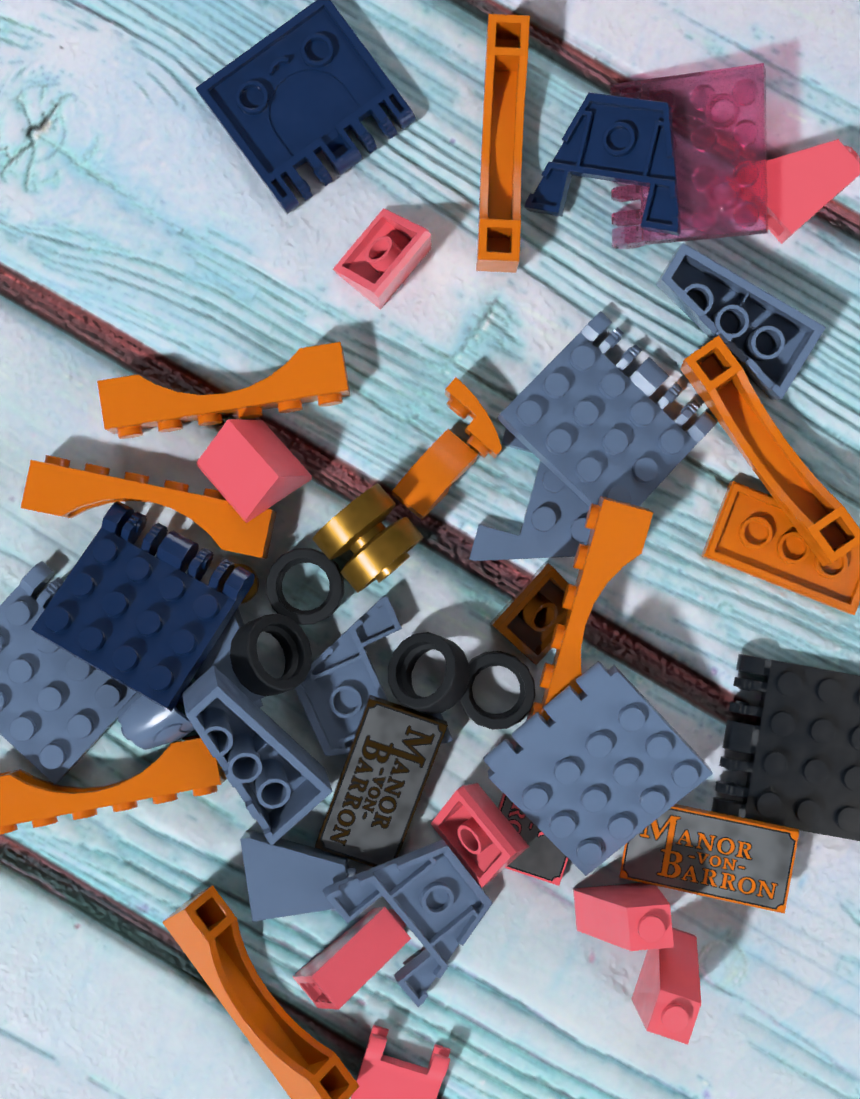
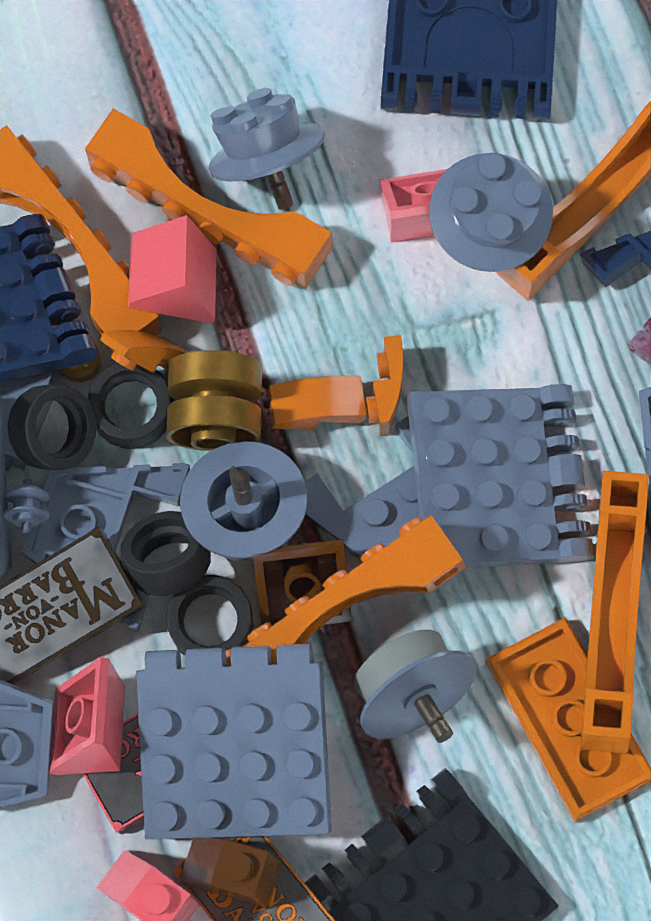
camera: 45 degrees right, 15 degrees down
(231, 315) = (262, 141): none -> sand blue piece
(287, 542) = (141, 348): none -> orange slope
(304, 725) = (26, 505): none -> sand blue wheel
(446, 232) = (491, 212): none -> sand blue piece
(453, 593) = (243, 500): none -> sand blue piece
(666, 853) = (231, 870): none -> reddish brown slope
(676, 620) = (412, 685): none -> sand blue piece

